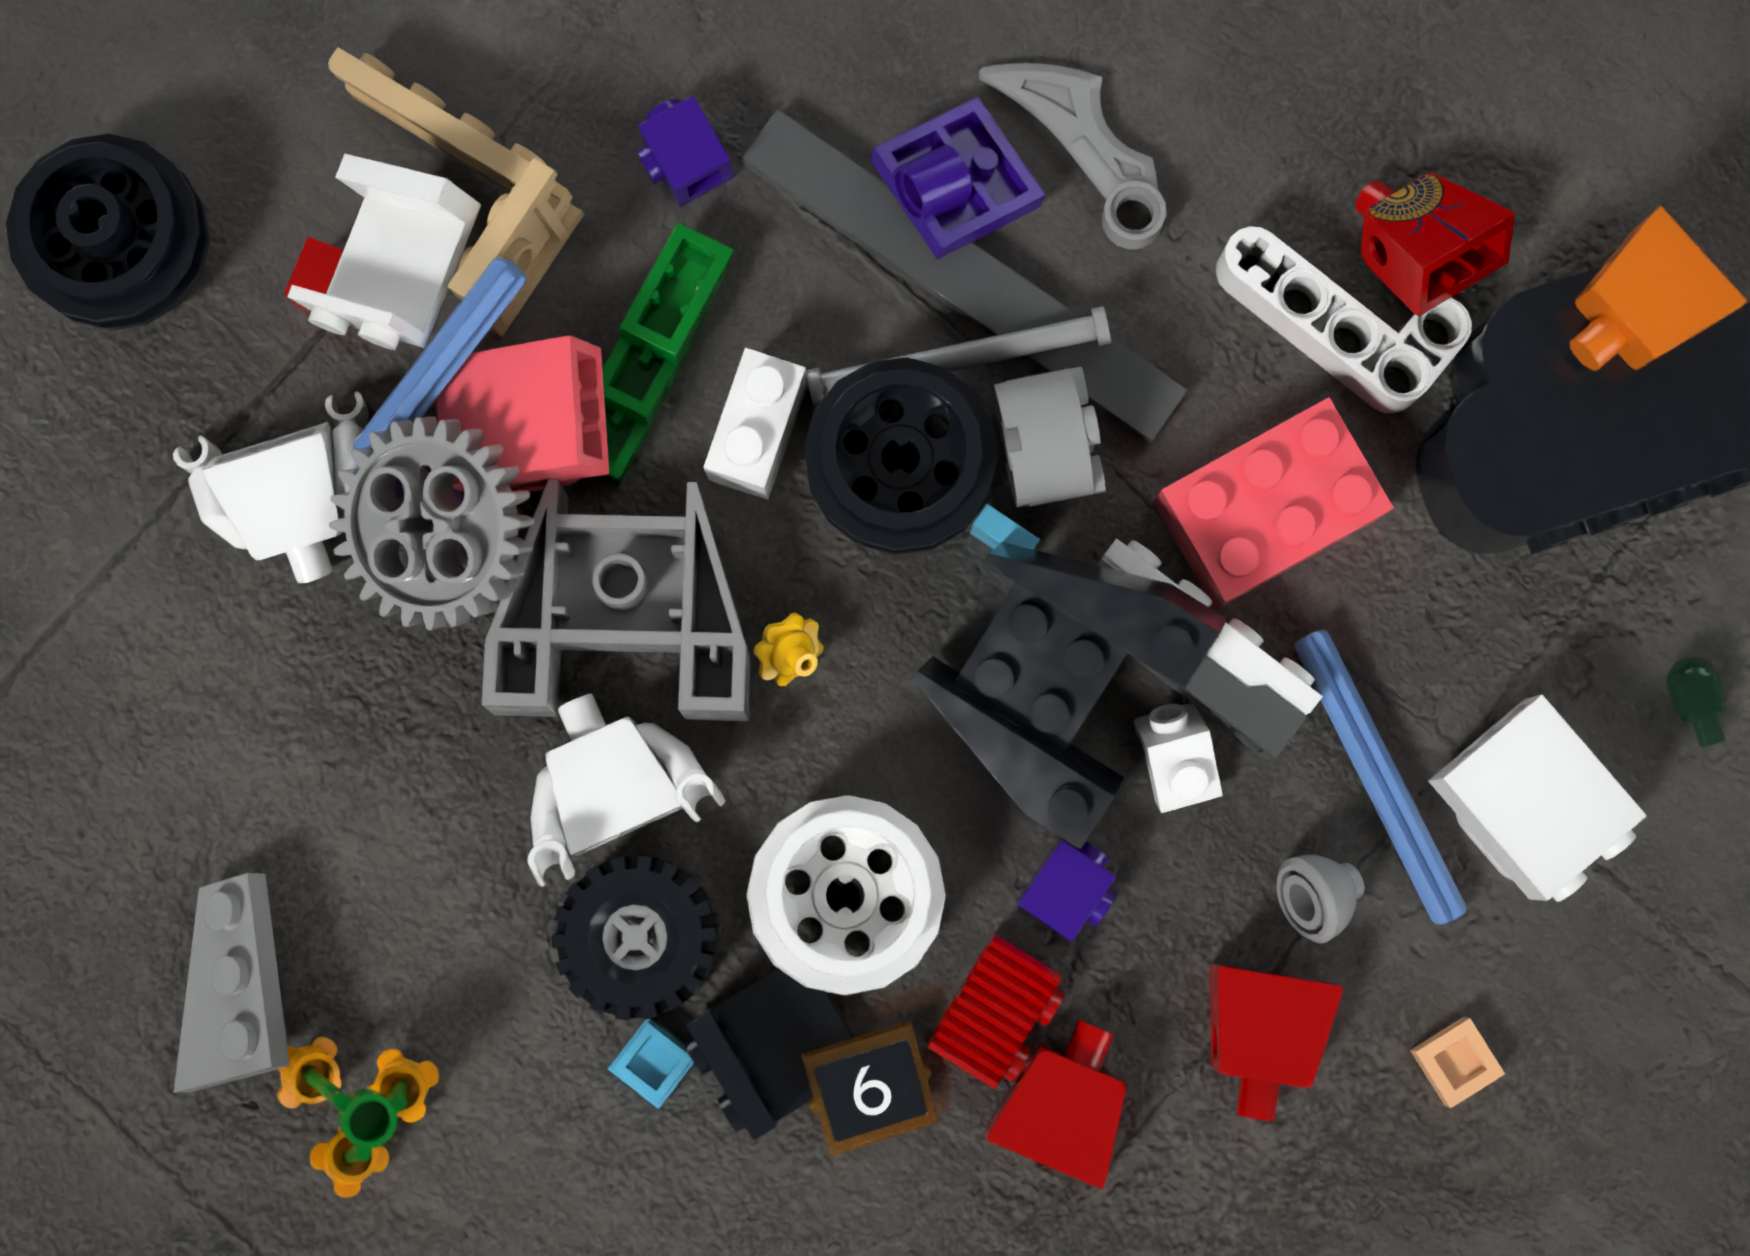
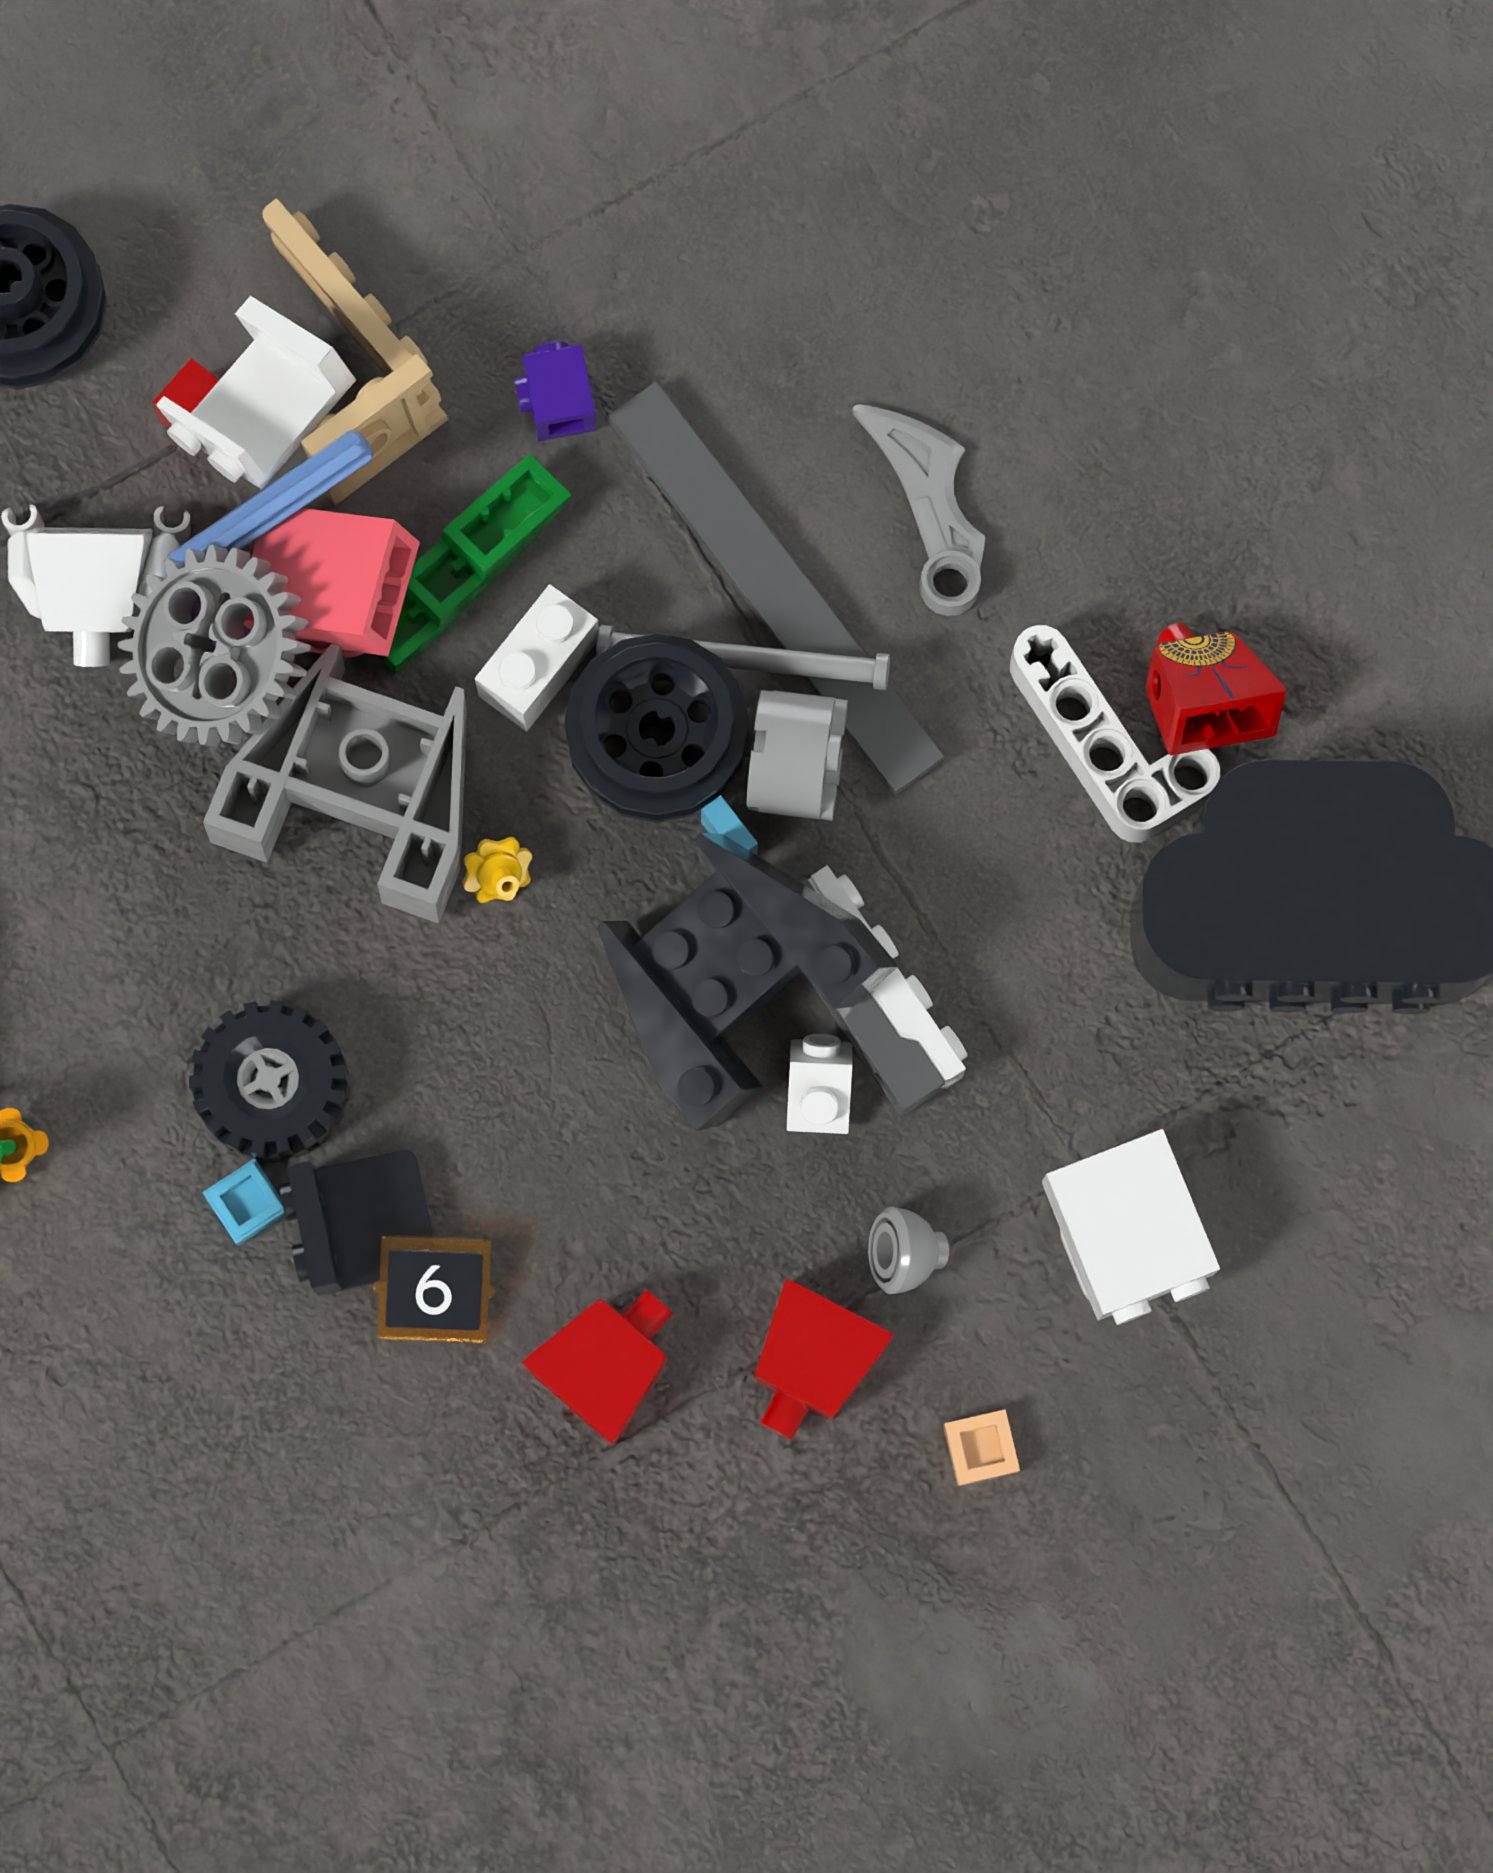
camera: 15 degrees right, 5 degrees down
(608, 785) = (291, 936): white torso -> none
(912, 879) = (508, 1049): white wheel -> none
(957, 177) = (797, 496): dark purple plate -> none
(996, 1012) = (572, 1257): red brick -> none
(1069, 889) = (677, 1169): dark purple brick -> none
(1272, 503) = (983, 883): coral brick -> none
(1380, 778) = (1000, 1165): medium blue axle -> none
(1651, 296) = (1369, 800): orange torso -> none
(1698, 697) = (1318, 1189): clear green cylinder -> none

